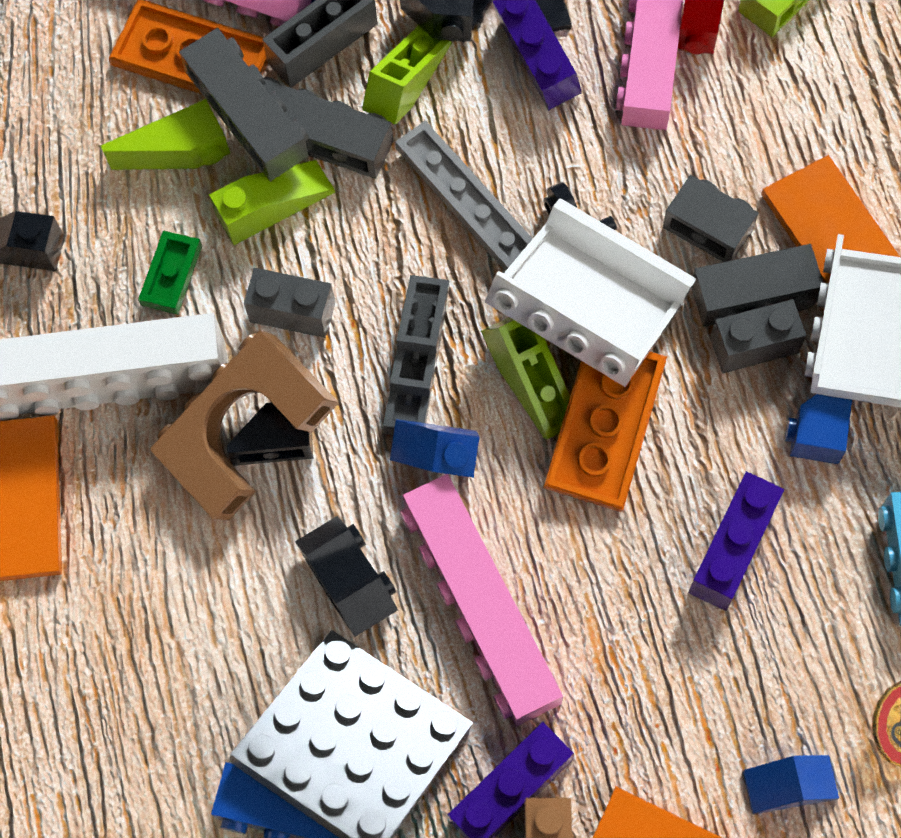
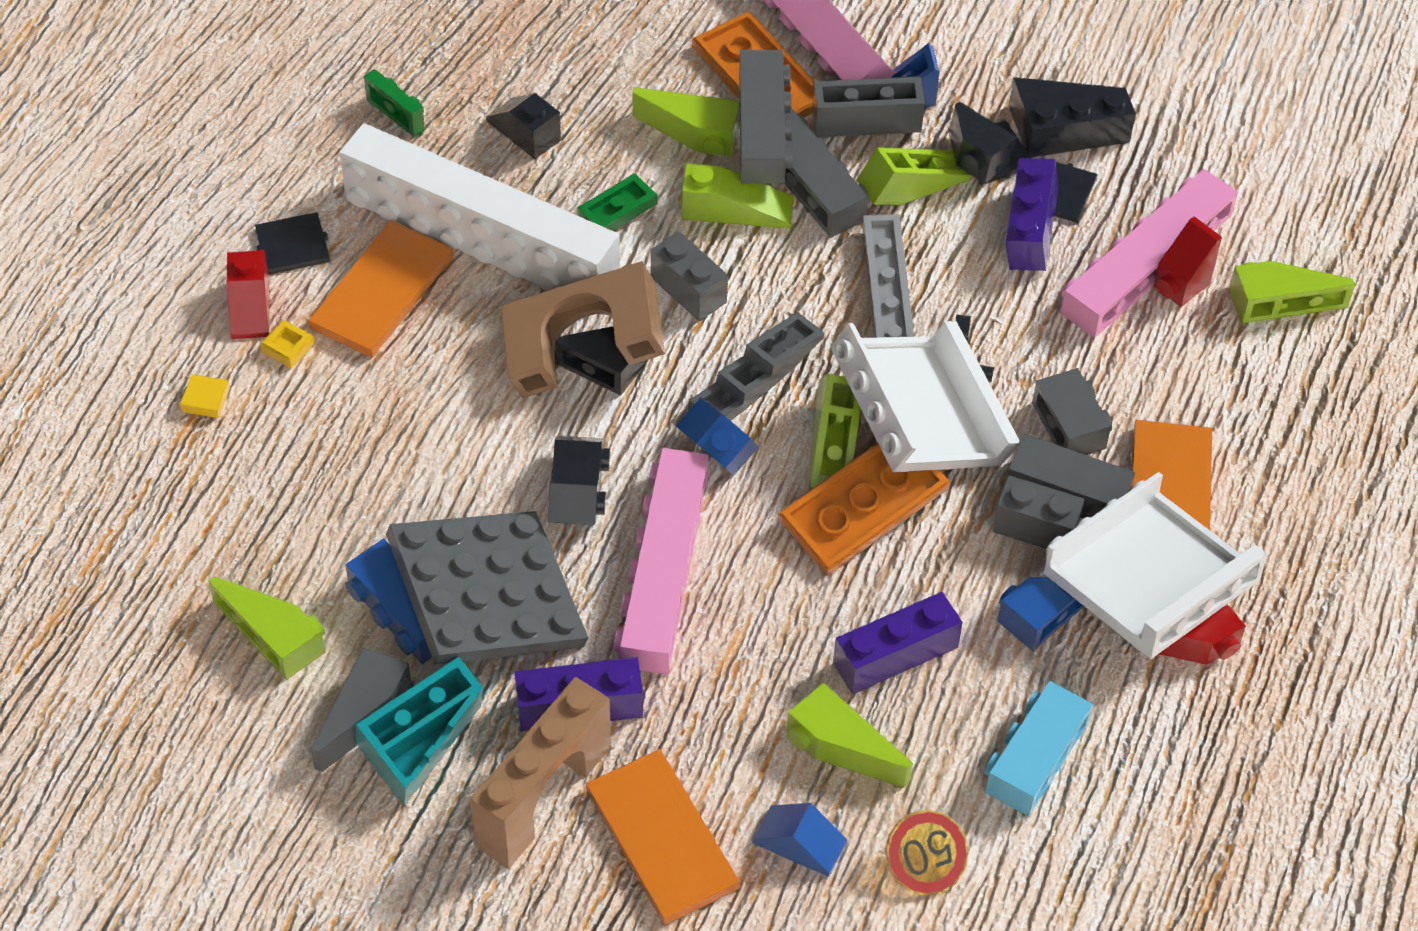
camera: 30 degrees right, 15 degrees down
(751, 663) = (841, 737): none -> lime slope

